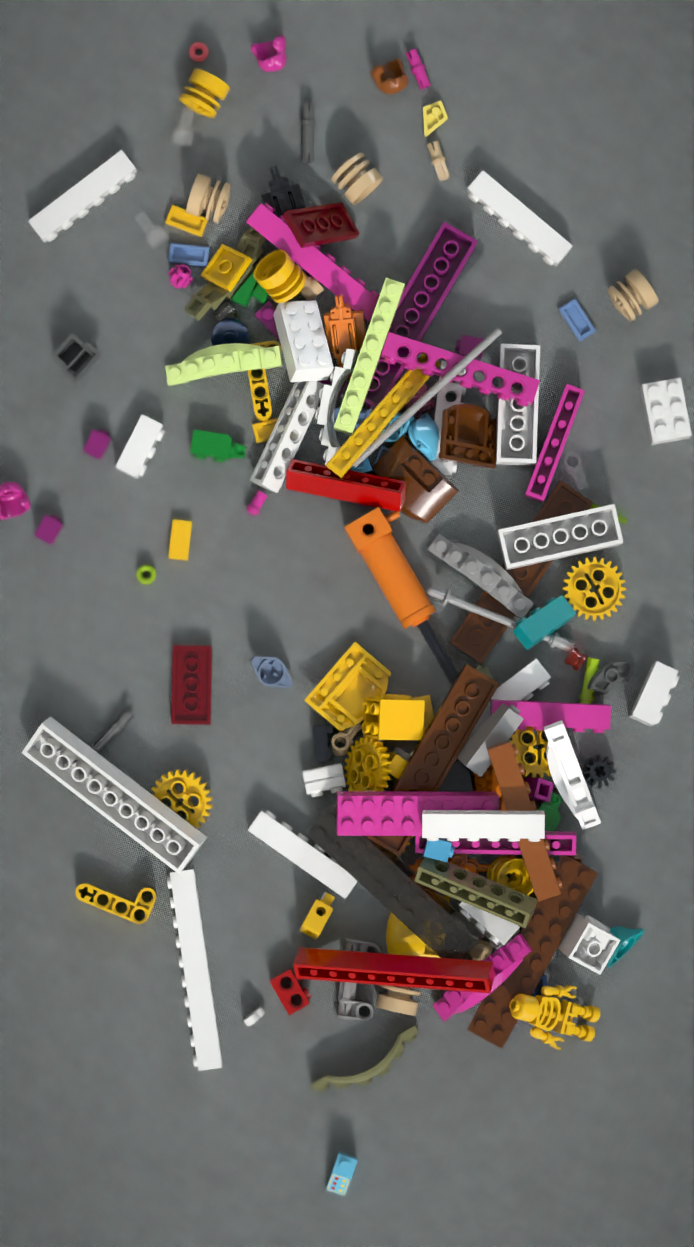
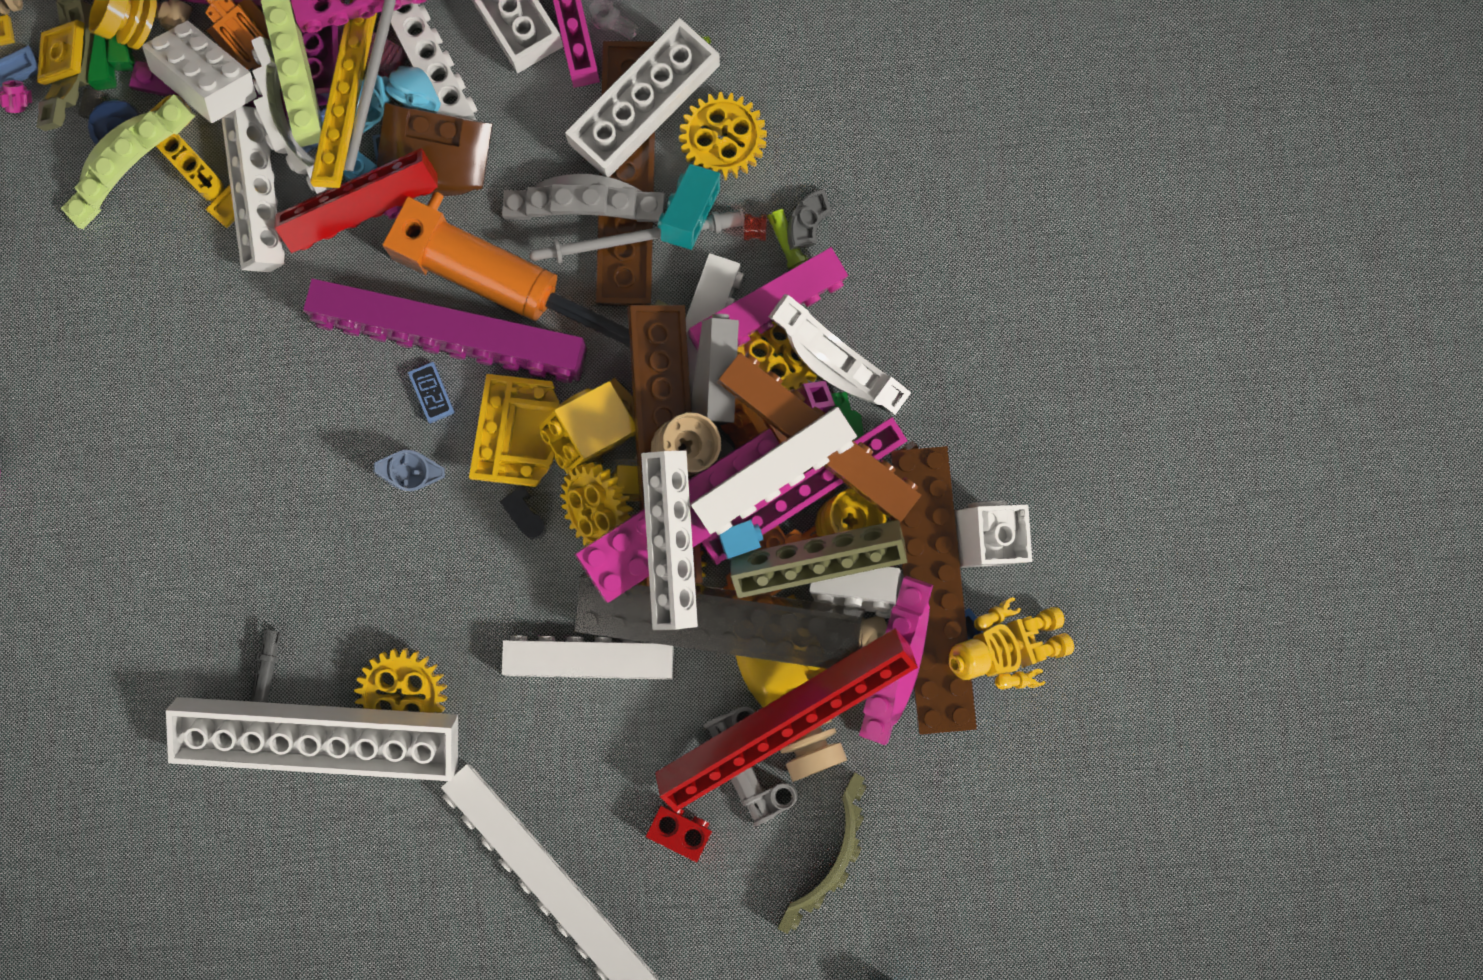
camera: 30 degrees left, 5 degrees down
(49, 529) = (40, 481): magenta brick -> none
(97, 444) = (36, 346): magenta brick -> none
(114, 899) = (397, 866): yellow beam -> none
(140, 447) = (89, 317): white brick -> none
(141, 570) = (185, 452): lime plate -> none
(180, 540) = (206, 393): yellow tile -> none
(191, 685) = (326, 550): dark red plate -> none
(215, 446) = (177, 260): green hinge -> none
(254, 1016) = (656, 892): white tile -> none
(256, 503) = (268, 293): dark pink pin -> none
(314, 630) = (431, 392): none -> tile
(314, 923) = (653, 731): yellow torso -> none
(324, 779) = (554, 556): white brick -> none
(345, 737) = (549, 491): tan axle -> none
(348, 600) = (445, 330): none -> magenta brick
(396, 825) = (669, 540): none -> white brick
(450, 779) = (697, 434): none -> tan wheel
(468, 436) = (462, 56): reddish brown slope -> none
(592, 774) = (876, 329): black gear -> none
(628, 940) = (1036, 502): teal hat -> none
(654, 694) = (872, 204): white brick -> none

